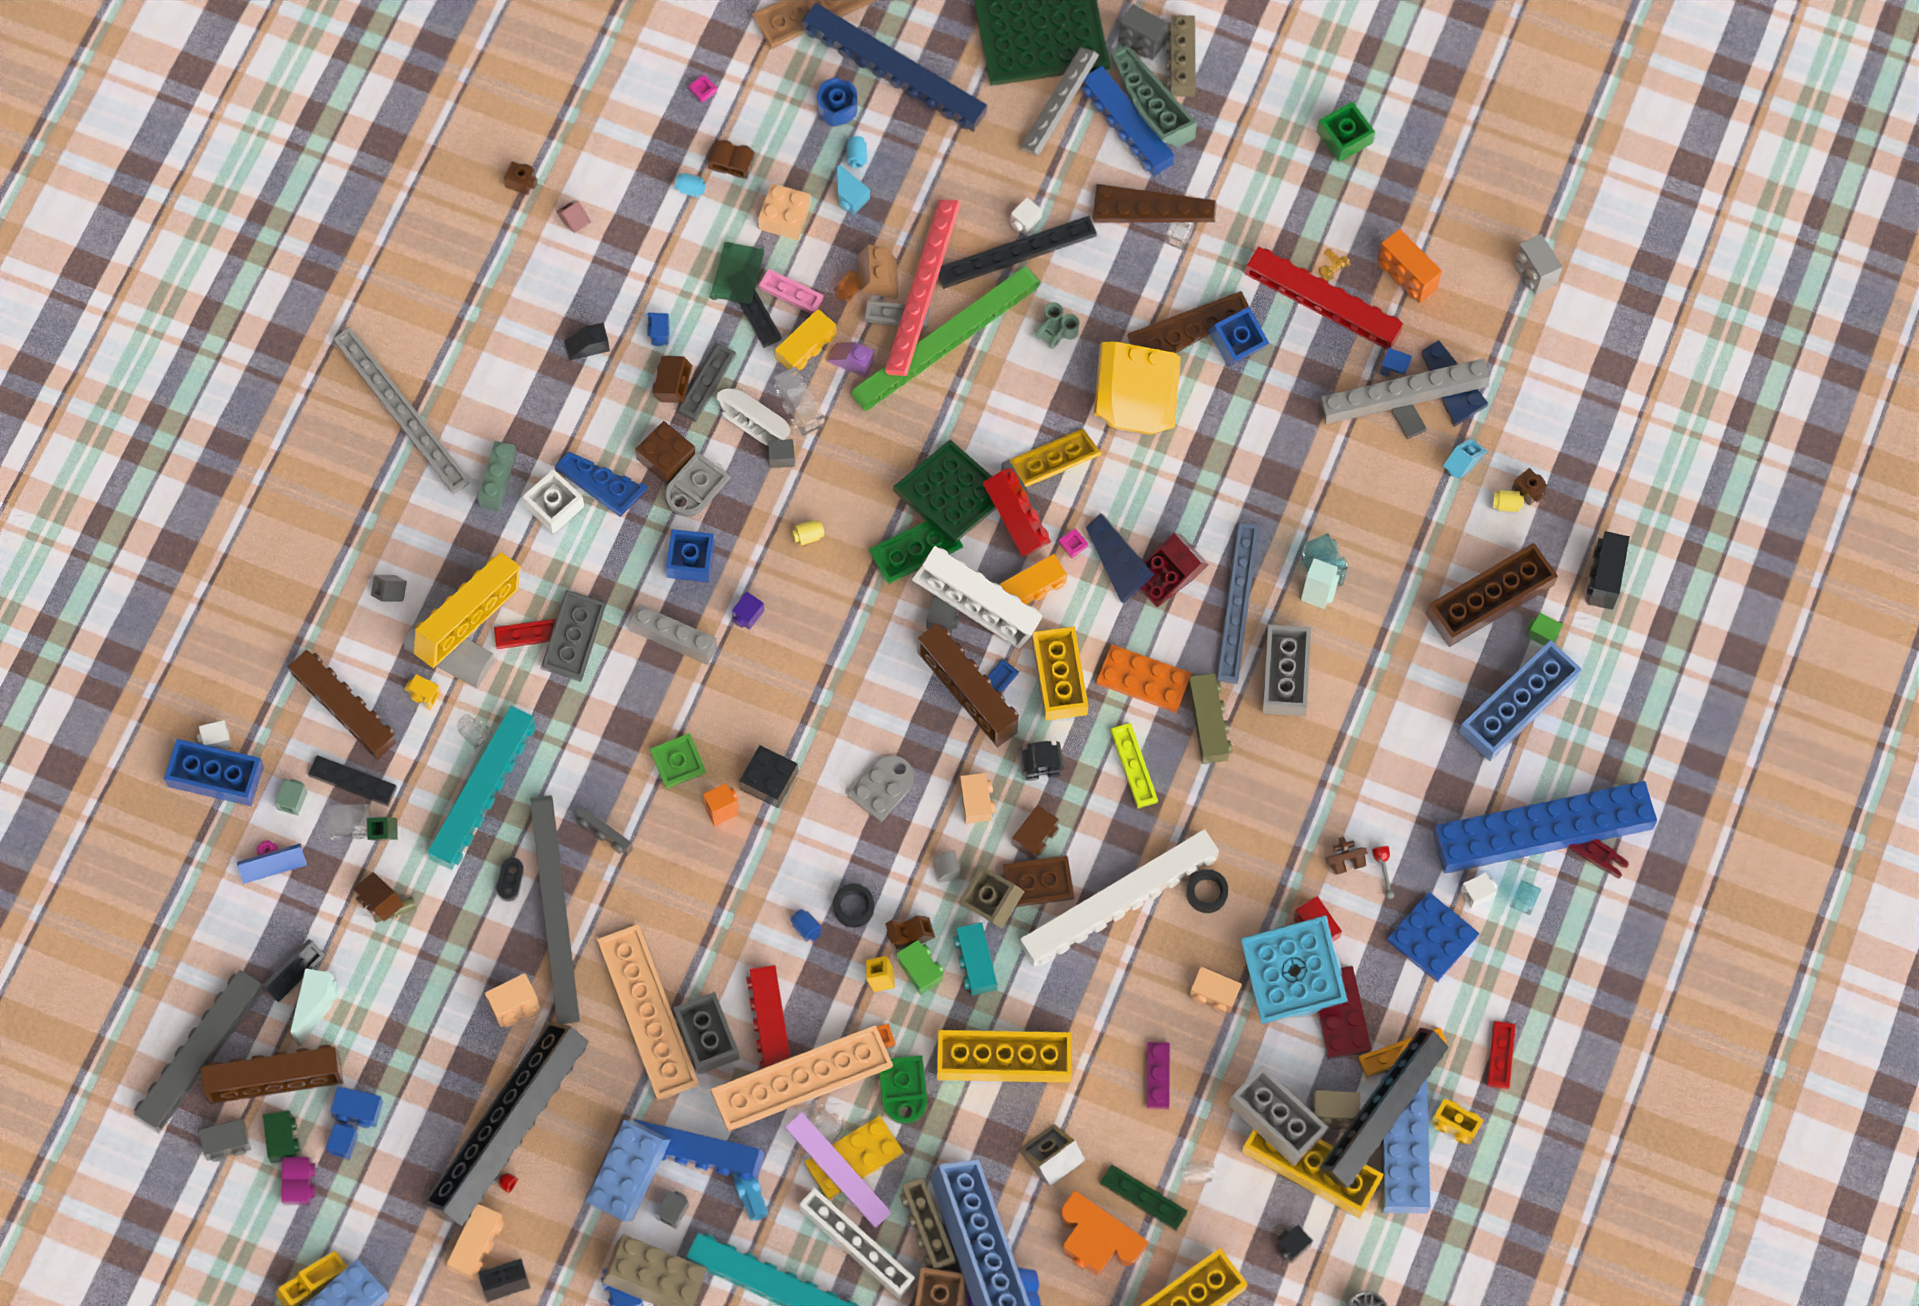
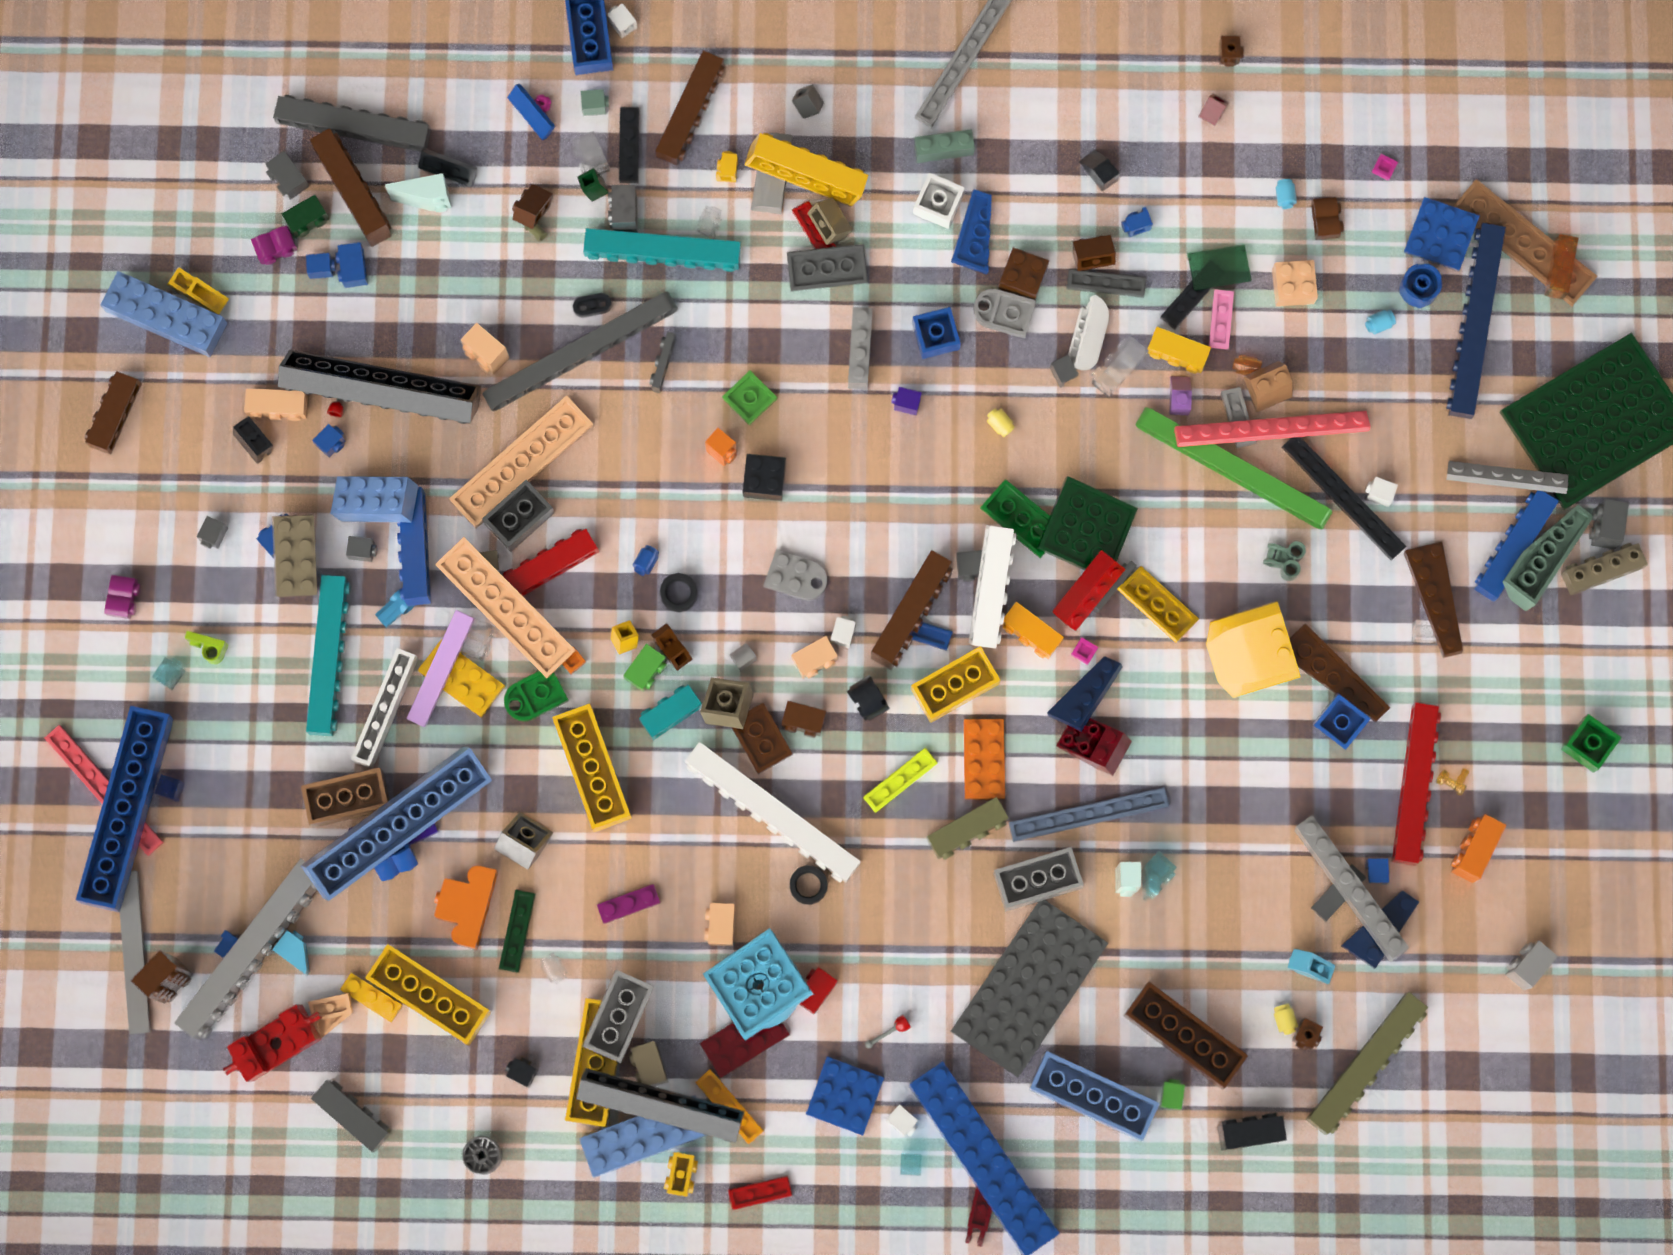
camera: 70 degrees right, 10 degrees up
(424, 806) = (623, 208): none -> flat silver brick
(527, 612) = (829, 221): none -> dark tan brick
(540, 1199) = (329, 440): none -> blue brick
(793, 65) = (1441, 234): none -> blue plate
(851, 192) = (1338, 331): medium azure slope -> none
(928, 1225) = (422, 760): dark tan brick -> none
(961, 760) = (843, 631): none -> white brick
(1356, 855) = (889, 991): reddish brown hips -> none
(1389, 723) = (1029, 987): none -> dark grey plate
(1577, 445) = (1367, 1063): none -> olive brick

